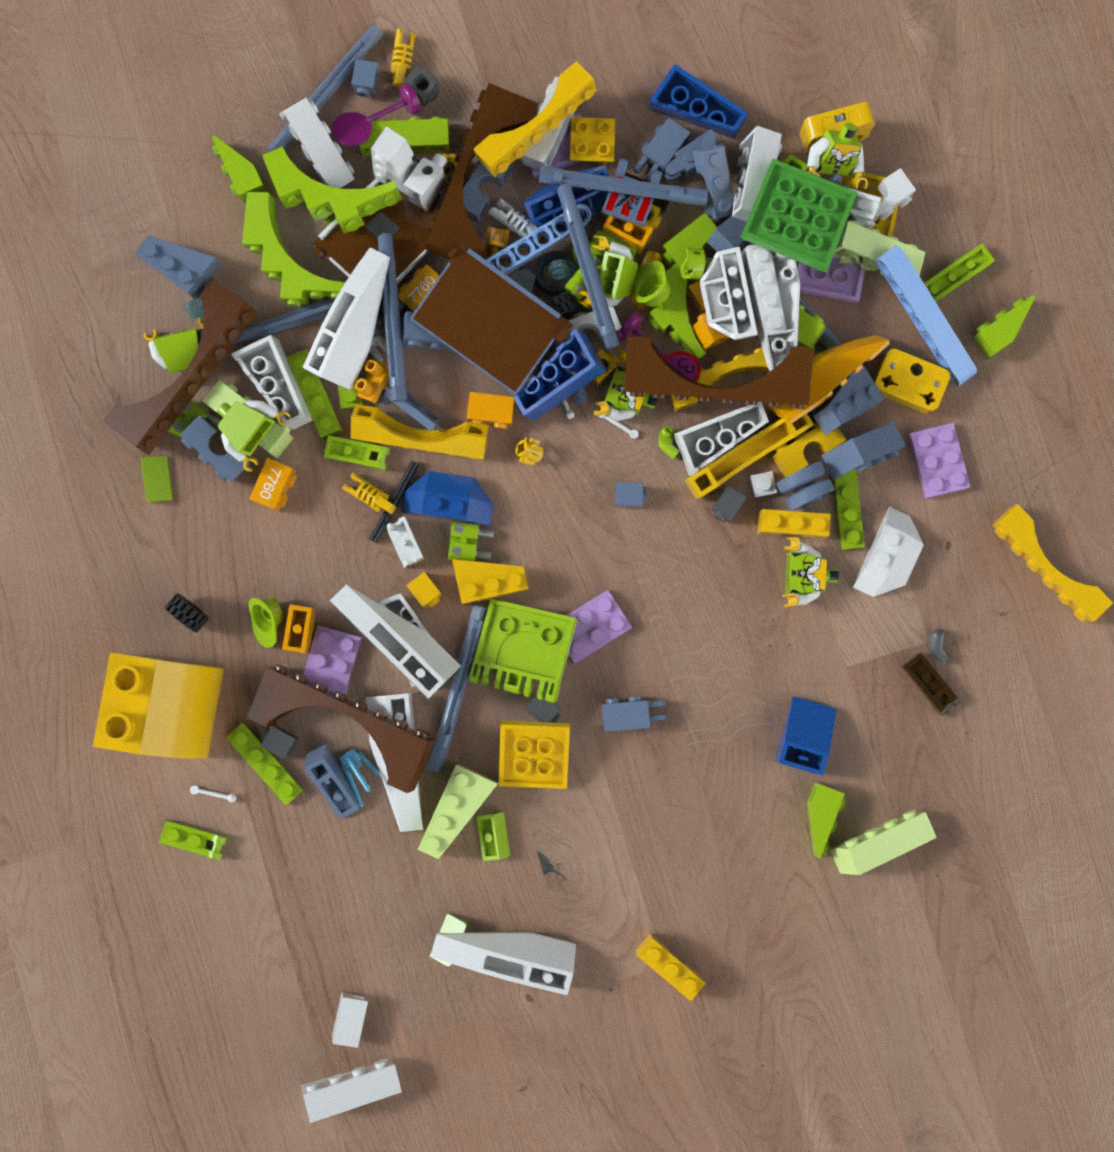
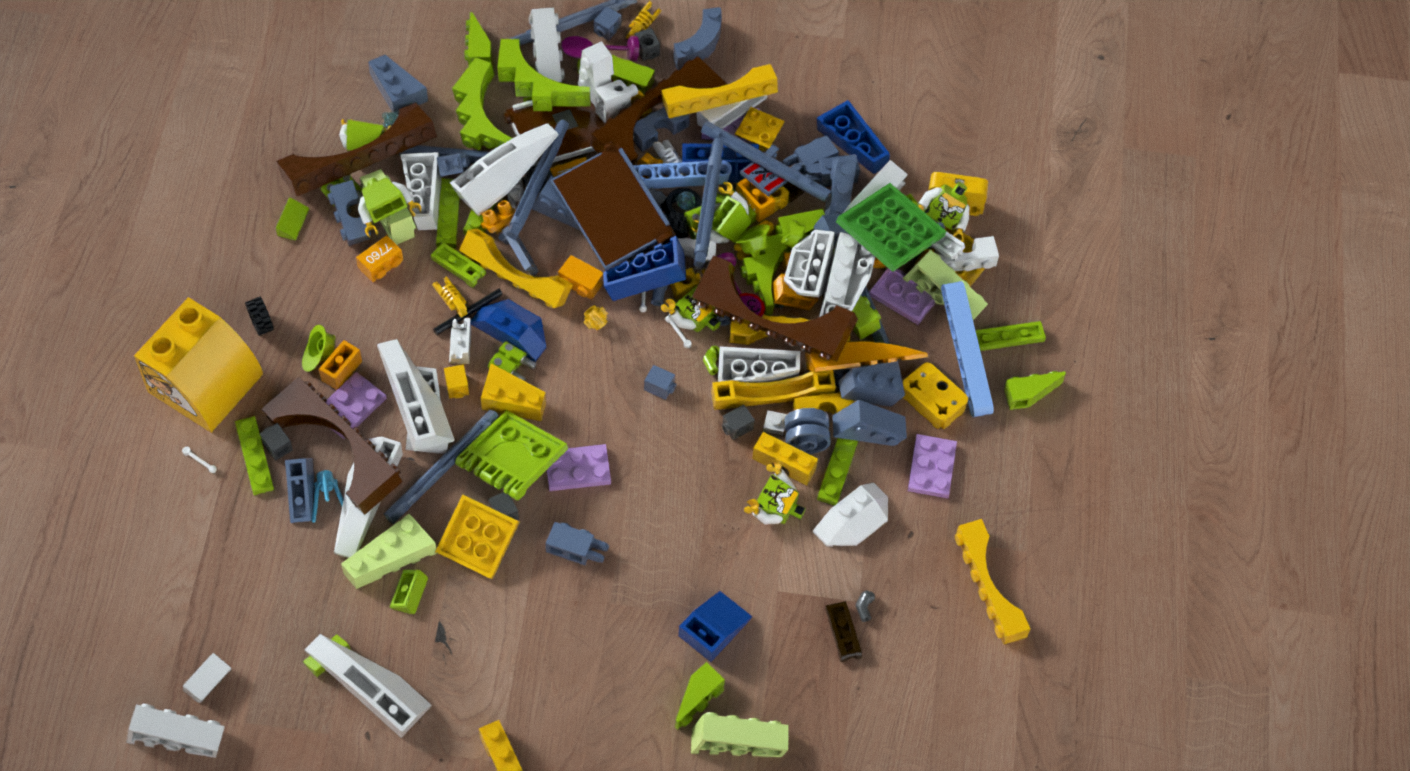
camera: 20 degrees right, 25 degrees down
(192, 839) = (162, 485): lime plate -> none
(292, 340) = (453, 164): none -> sand blue hinge
(480, 62) = (703, 41): none -> sand blue brick

